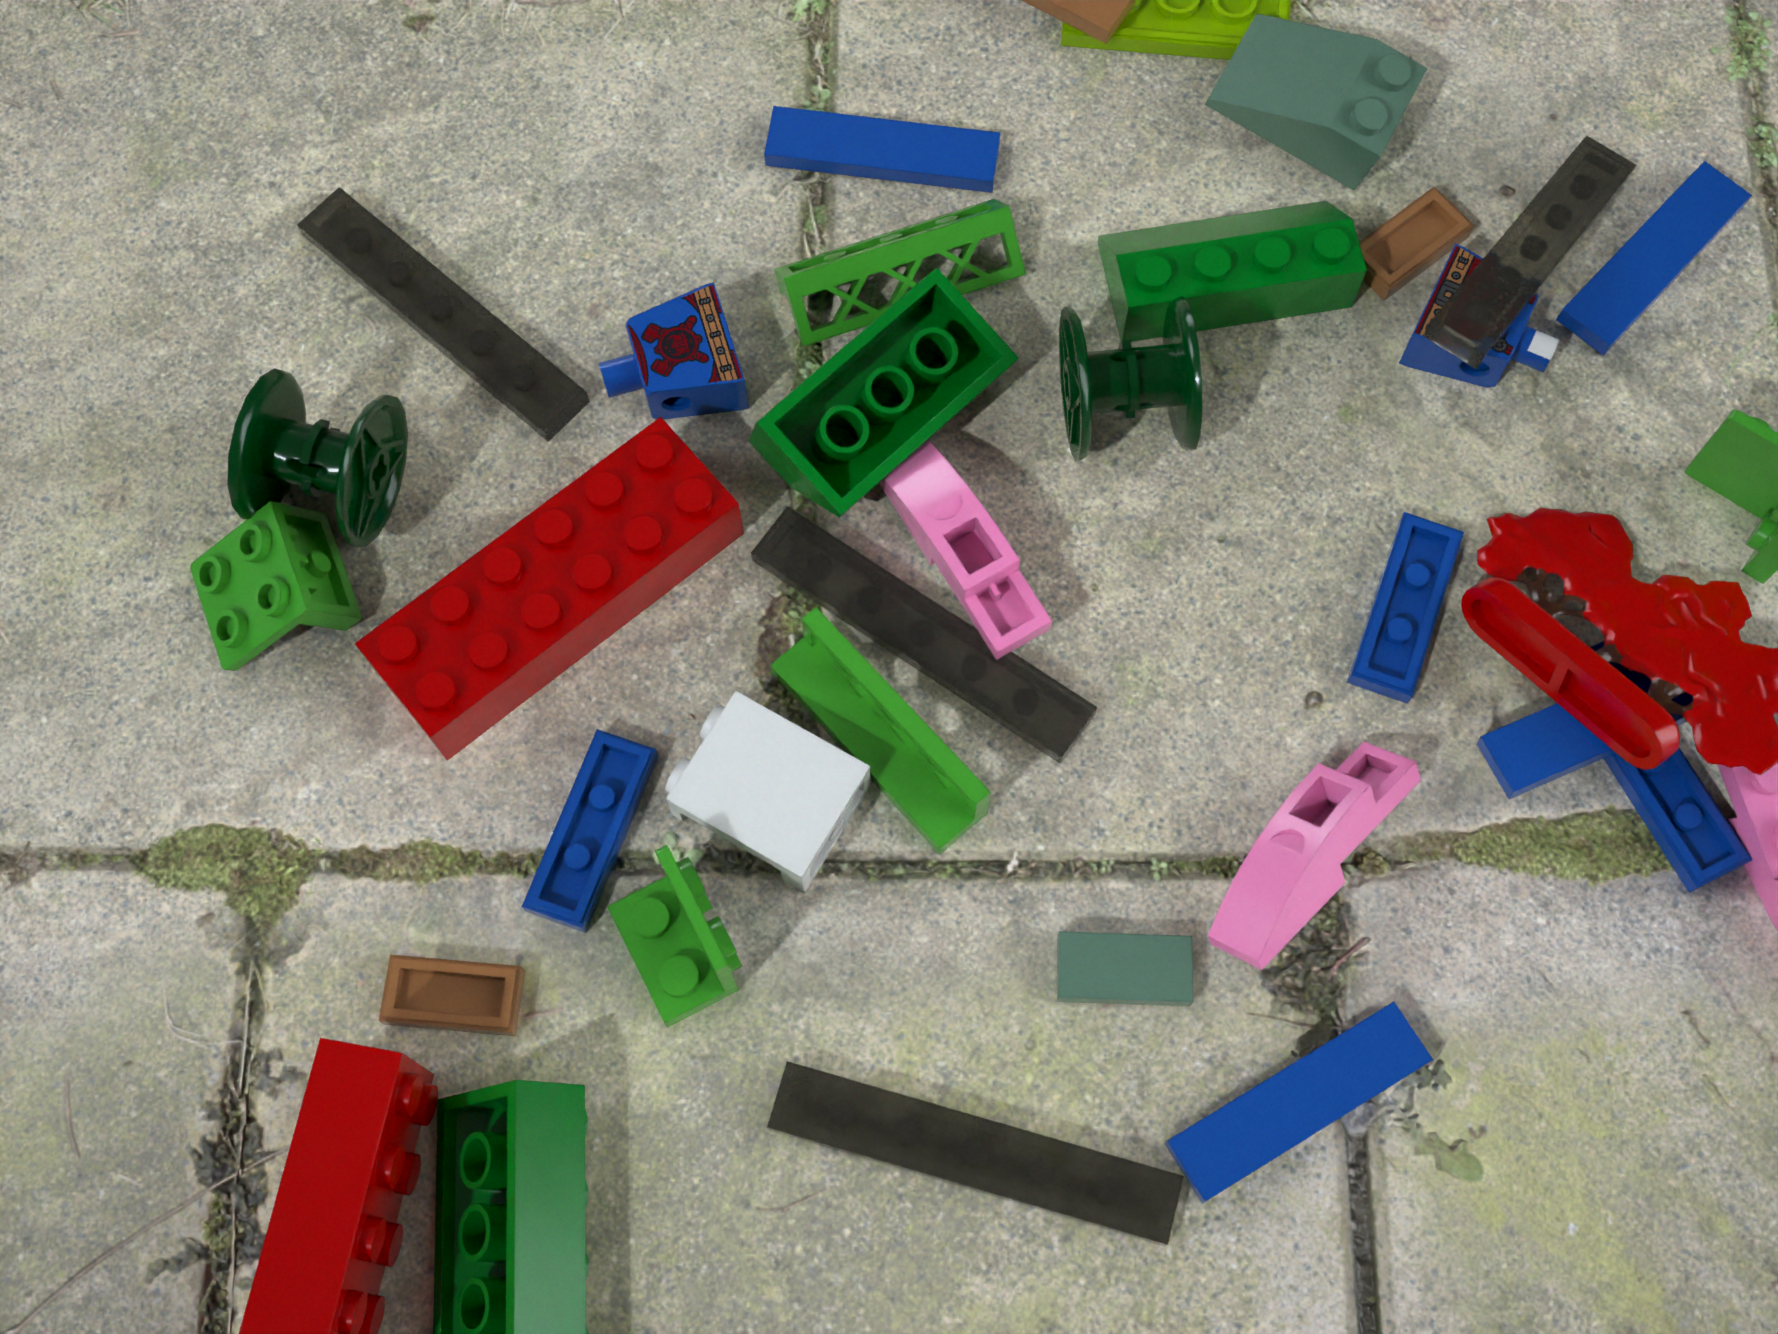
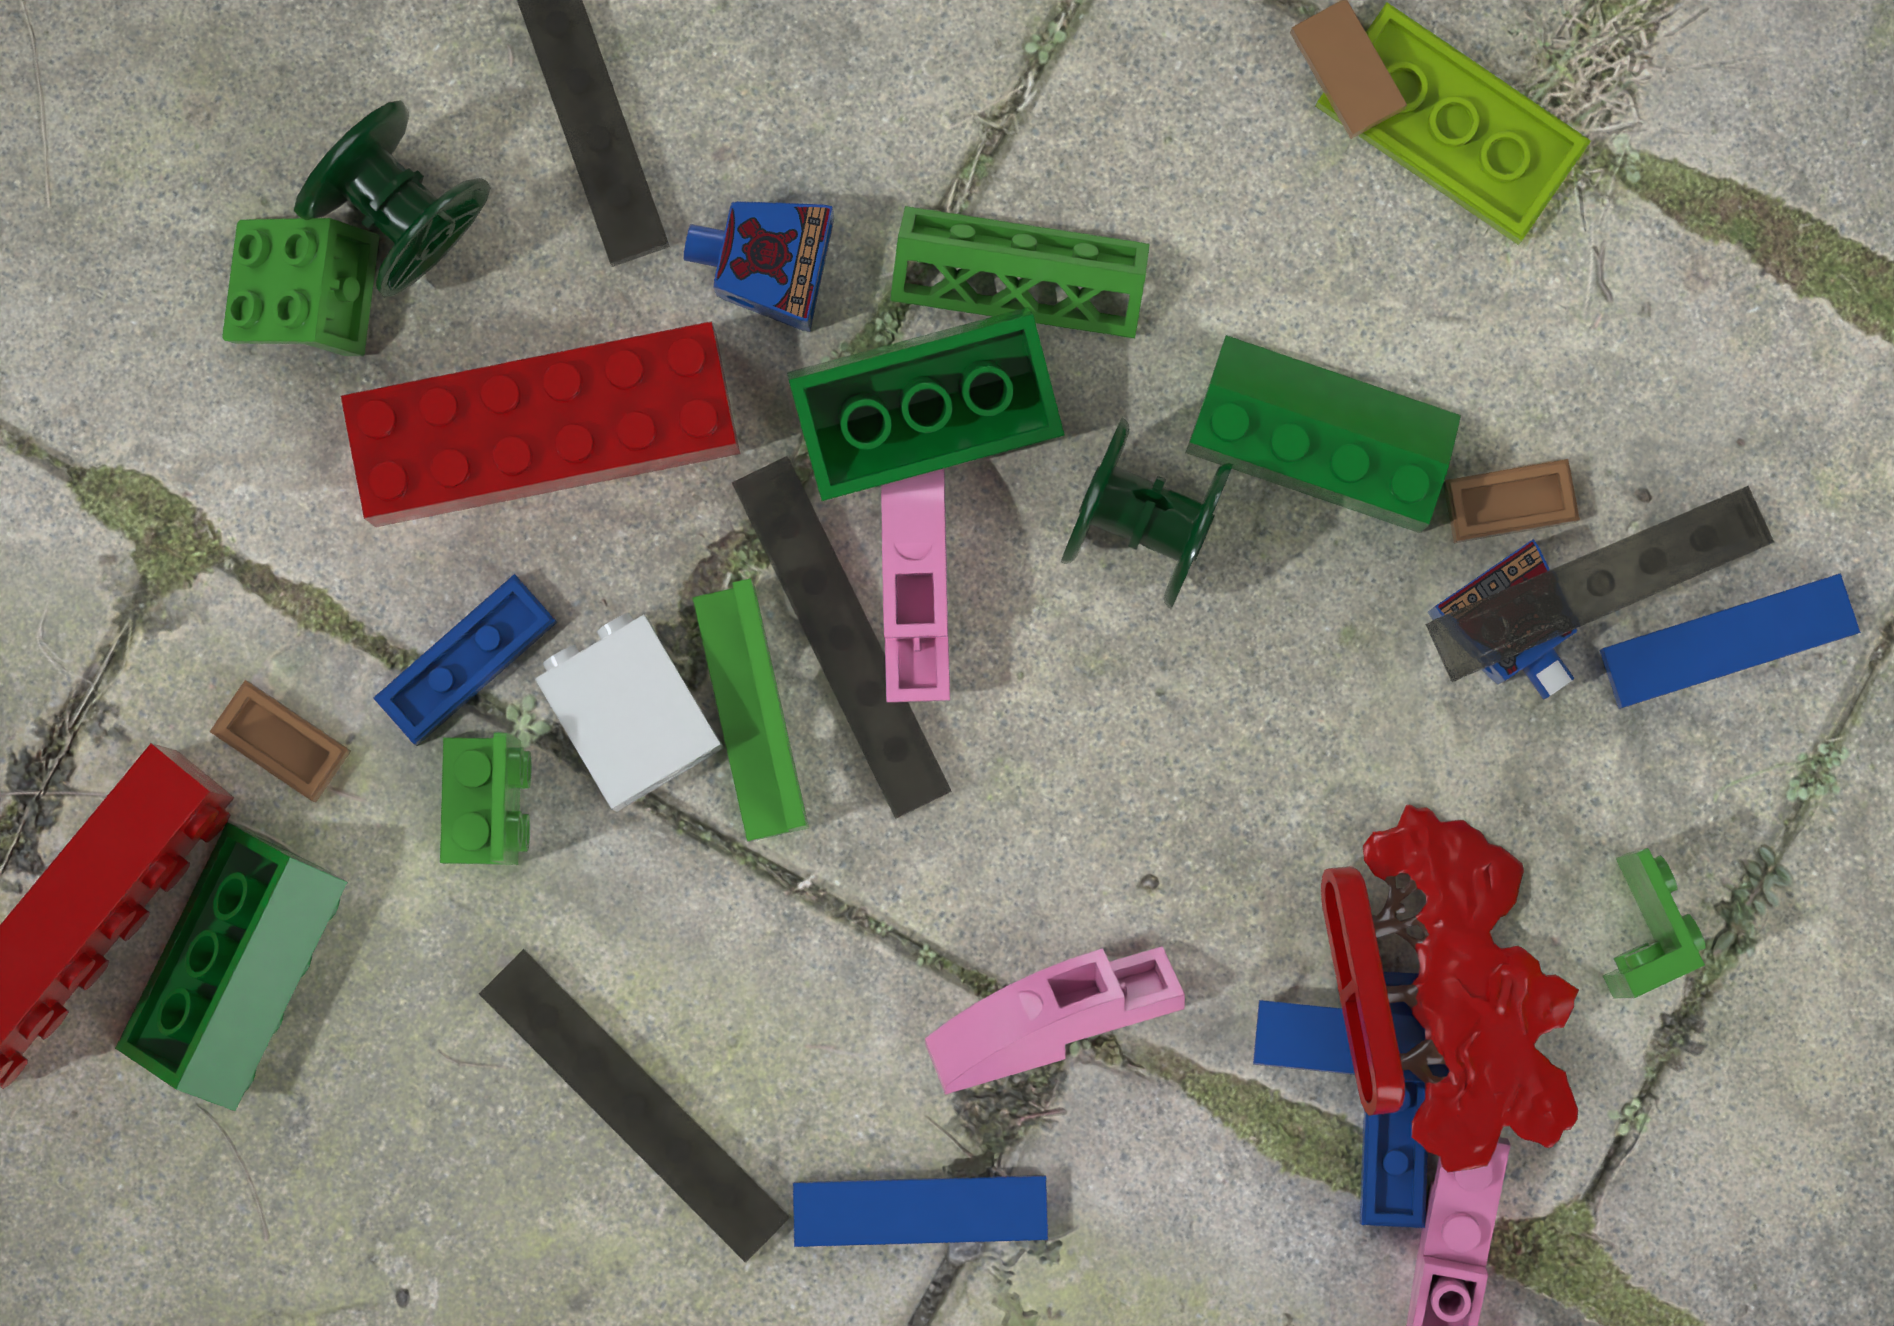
camera: 30 degrees right, 15 degrees up
(882, 149) = (1076, 132): blue tile -> none
(1124, 968) = (843, 1025): sand green tile -> none
(1317, 93) = (1511, 305): sand green slope -> none
(1405, 608) = (1279, 846): blue tile -> none

